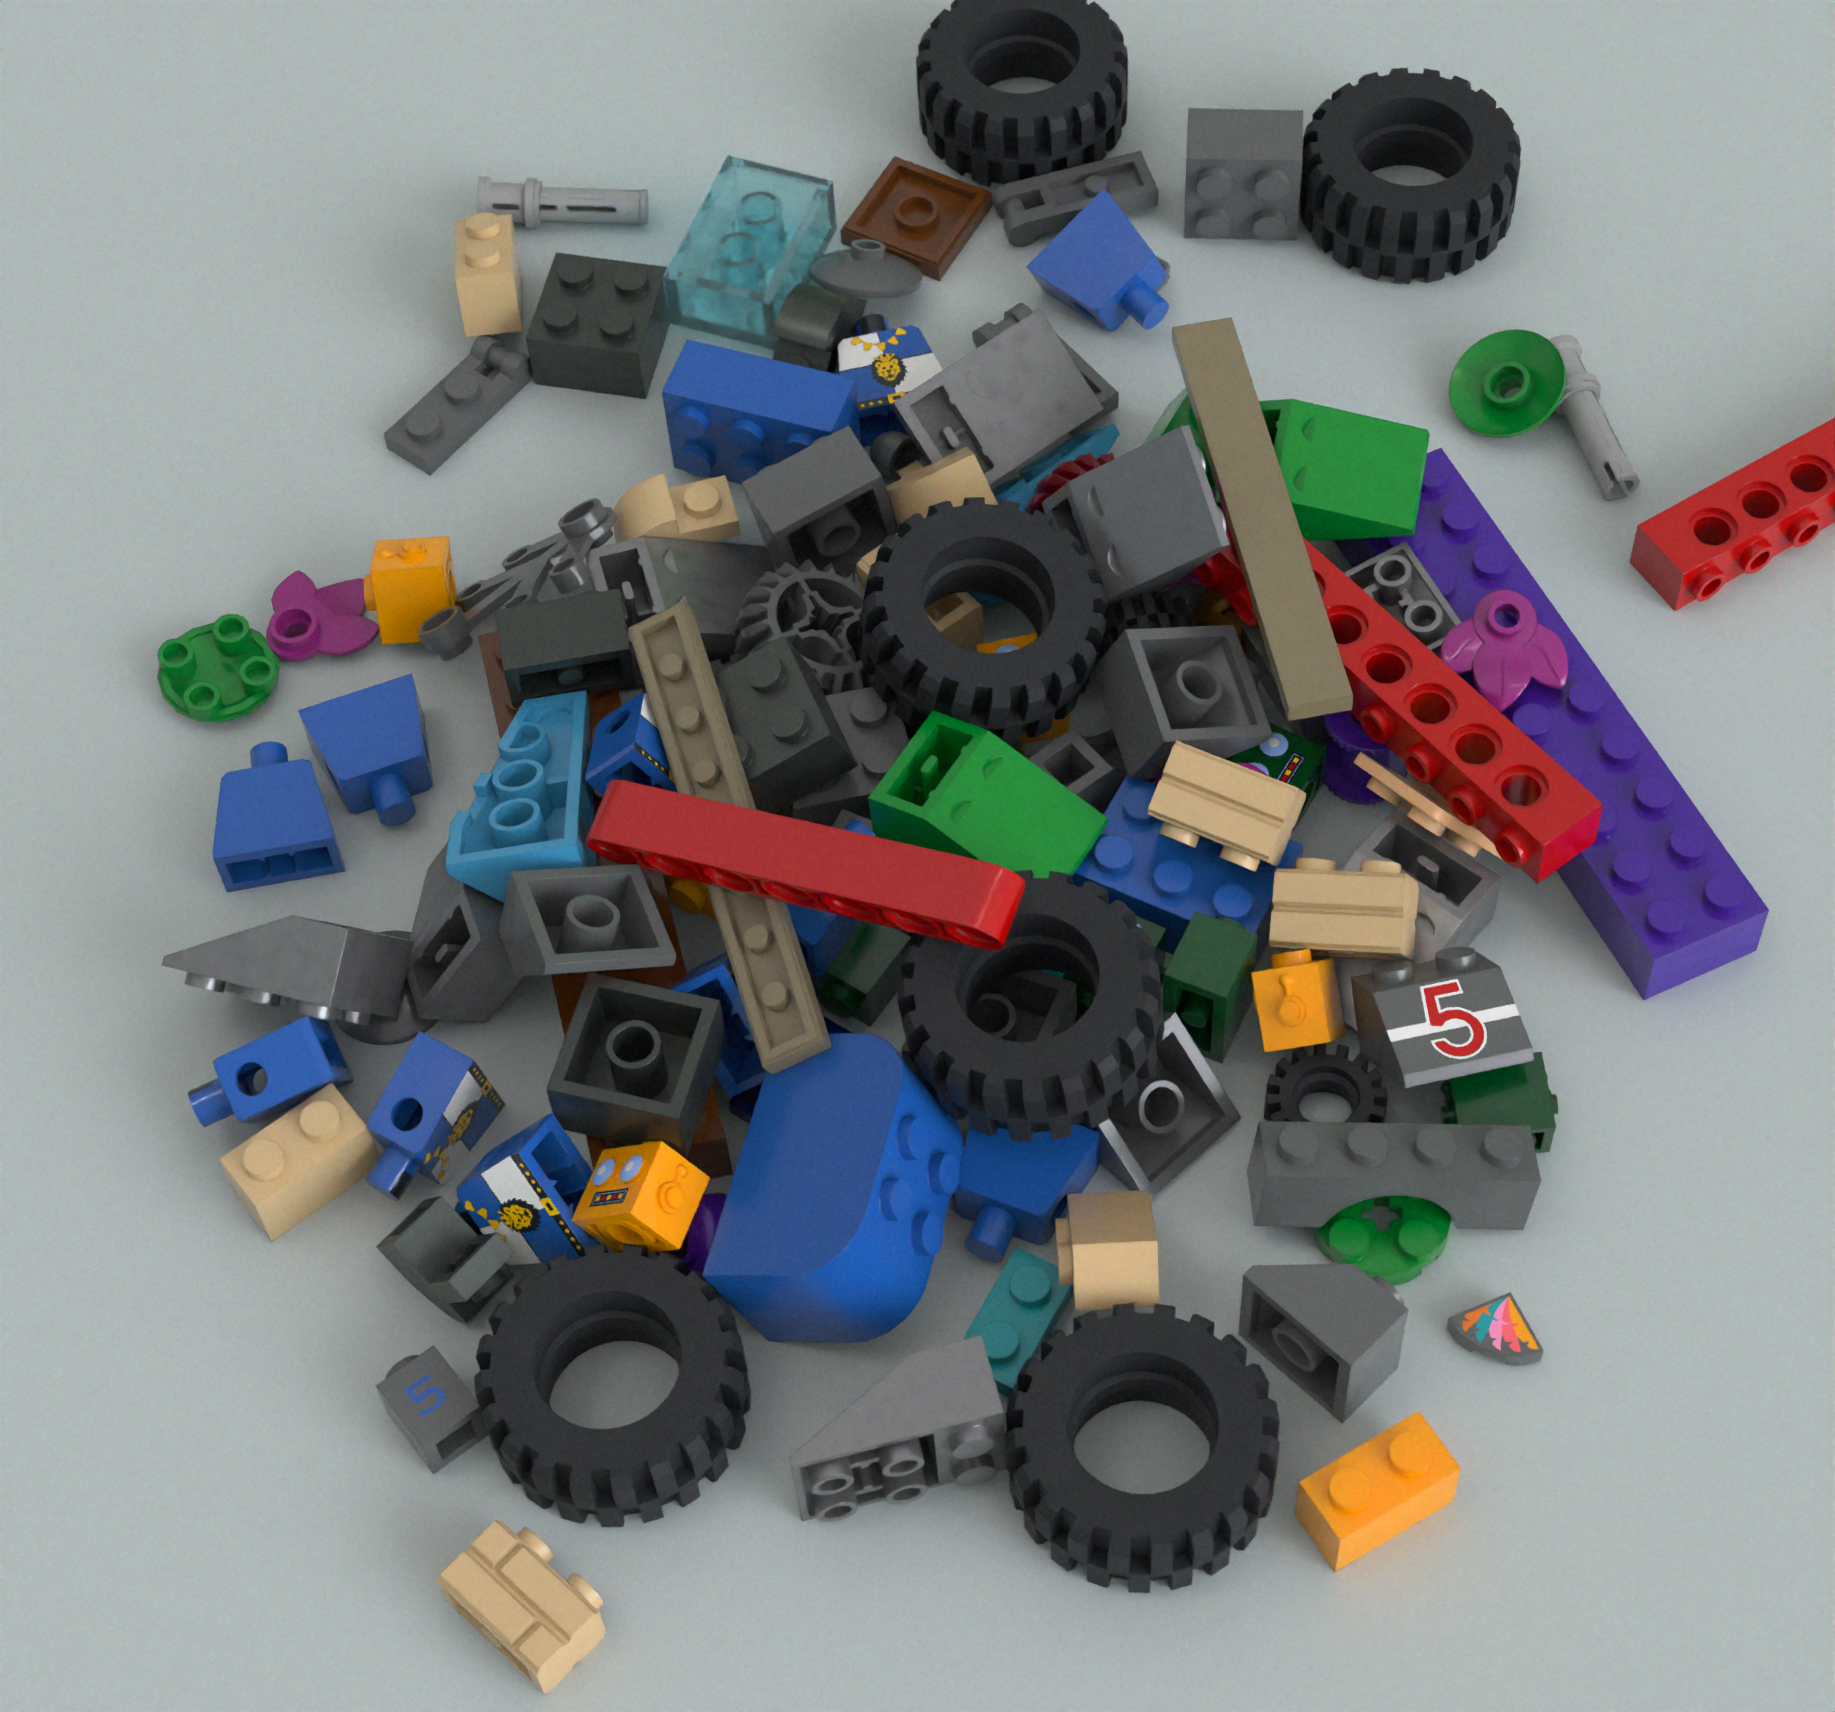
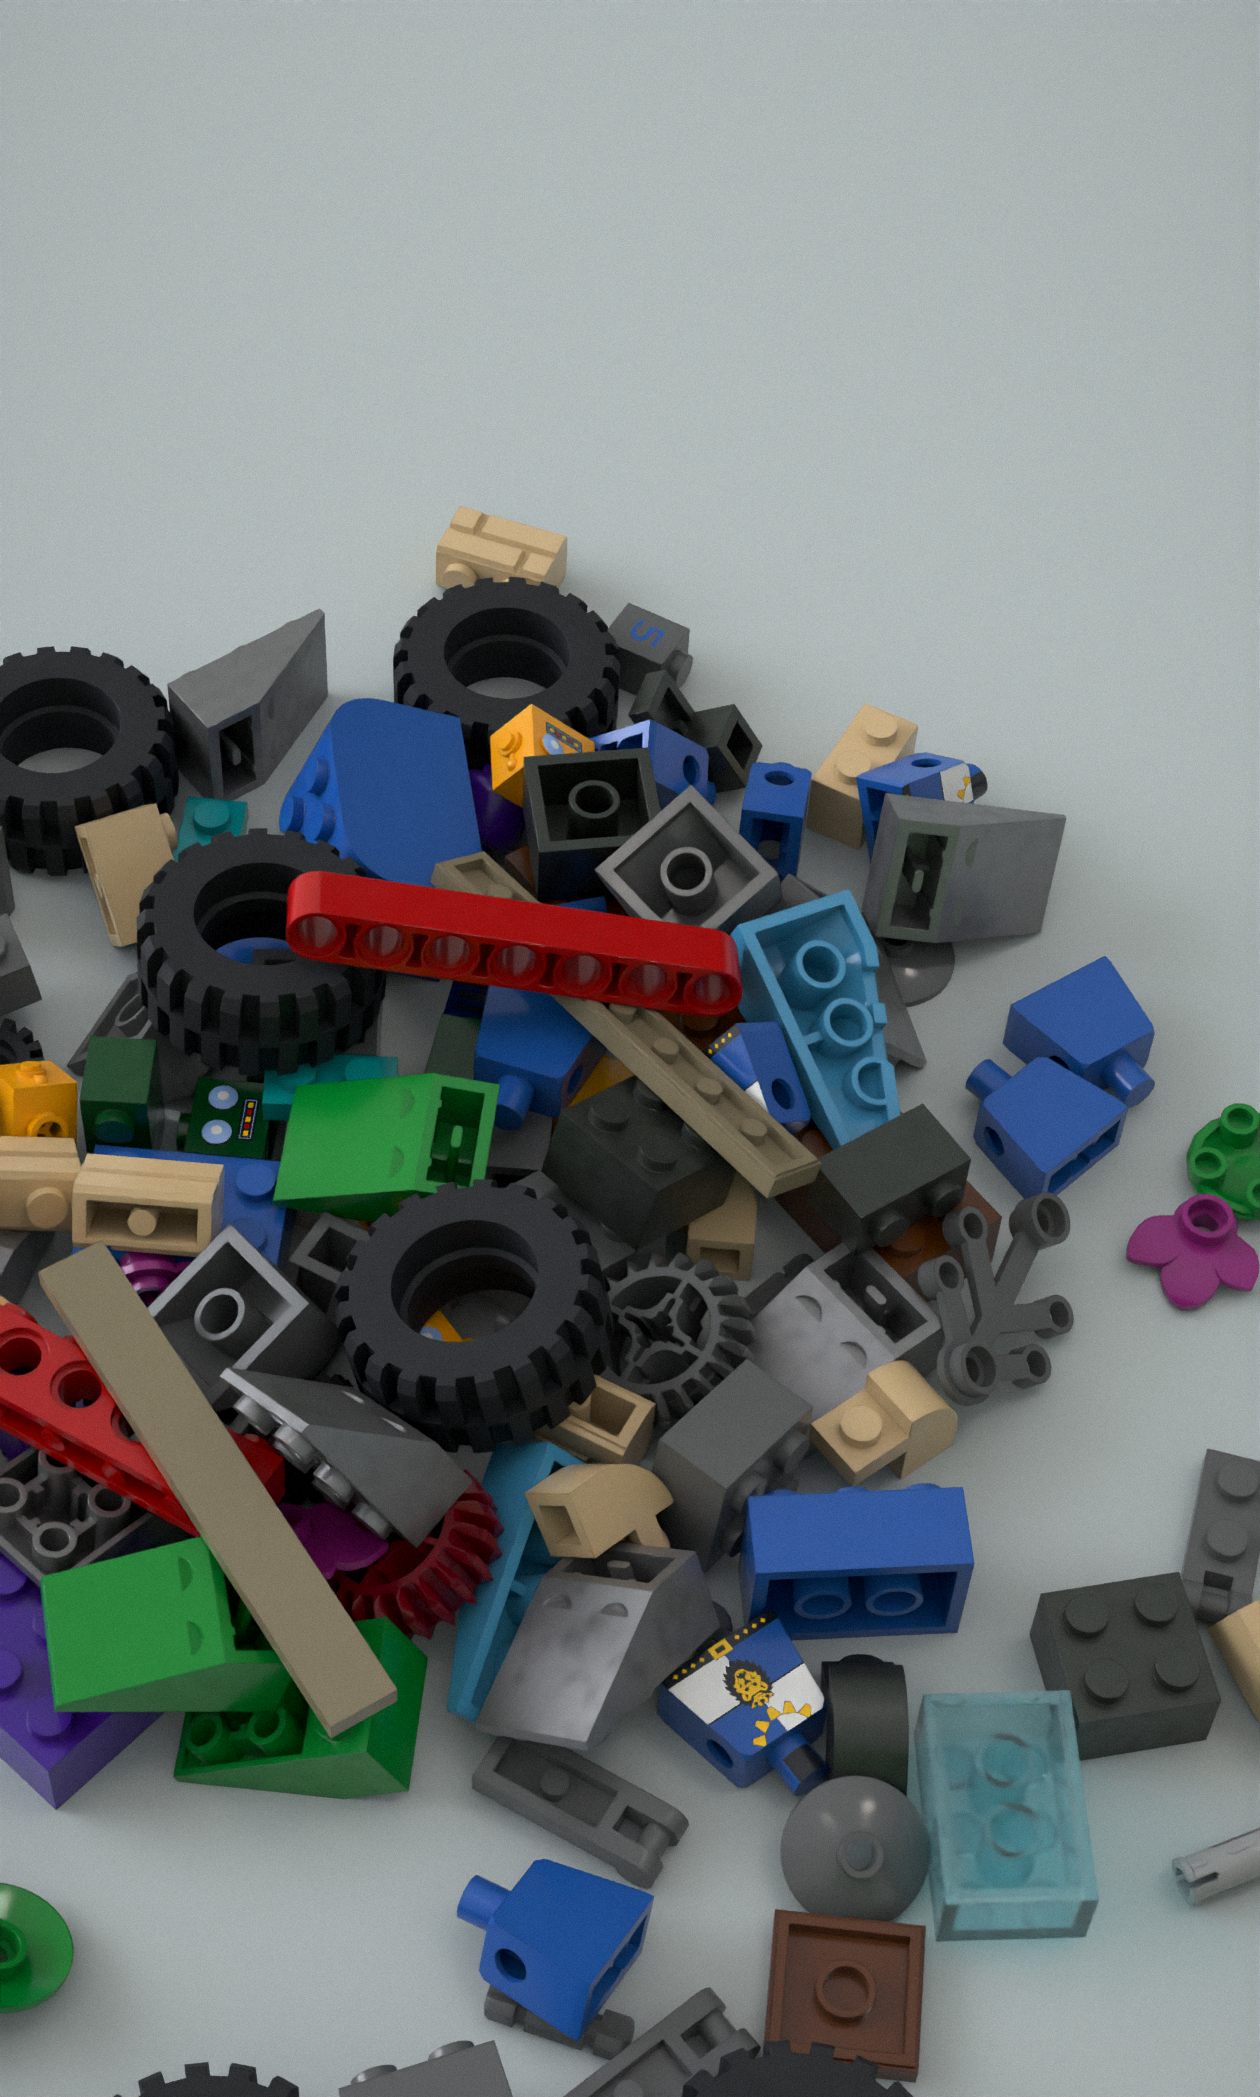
camera: 150 degrees right, 5 degrees down
(409, 585) = (1107, 1269): light orange head -> none

